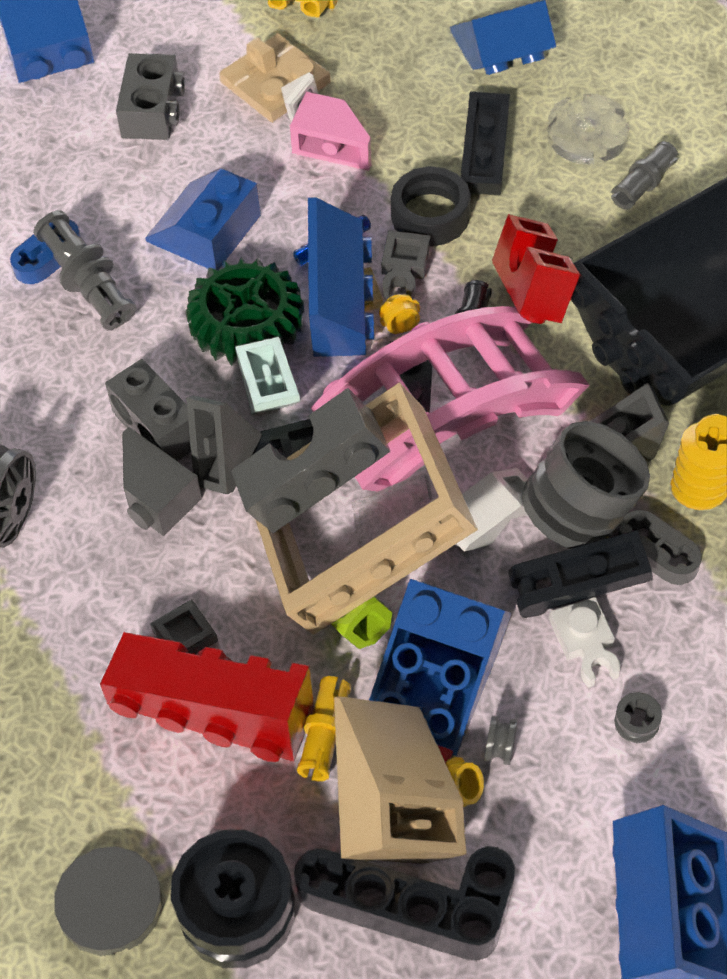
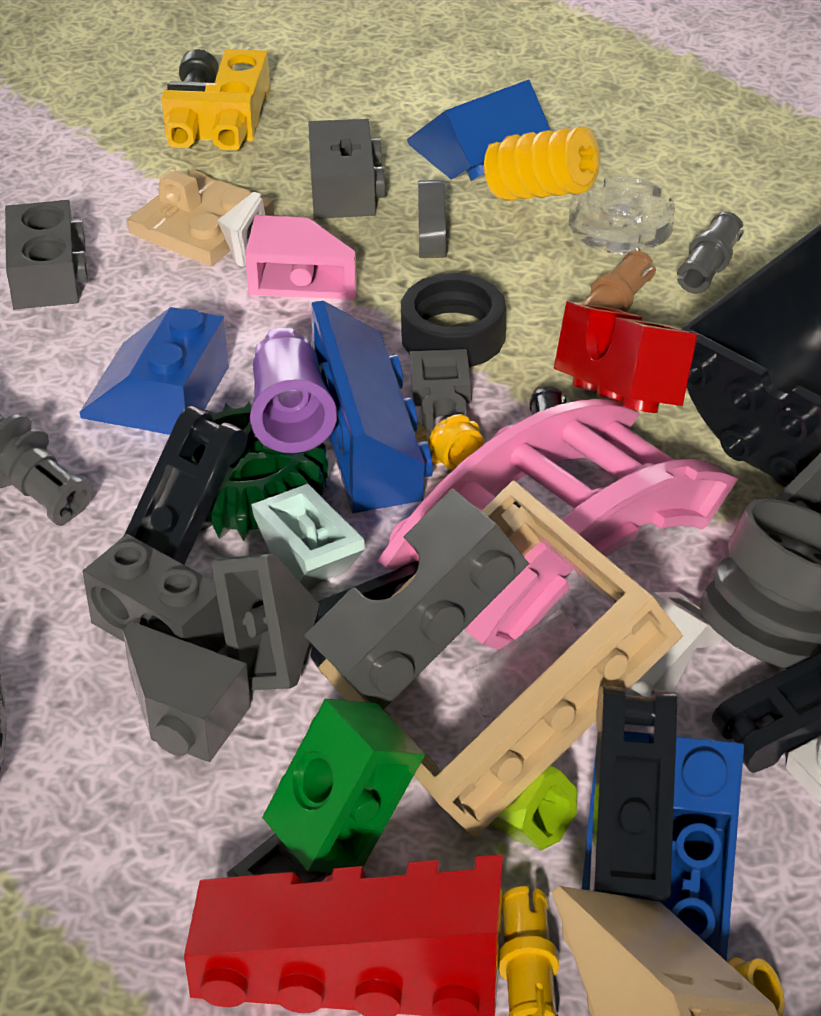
camera: 15 degrees left, 15 degrees down
(188, 328) = (181, 489): none -> black plate
(232, 583) = (342, 785): none -> green brick
(279, 267) = (290, 398): none -> medium lavender plant
(388, 51) = (344, 168): none -> dark grey brick
(415, 635) = (634, 795): none -> black plate
(442, 109) = (431, 219): none -> dark grey beam
(485, 142) = (499, 244): black plate -> none
(500, 740) = (786, 926): dark grey bush -> none
(537, 77) = (542, 164): none -> yellow piece
(558, 200) = (620, 286): none -> medium nougat pin

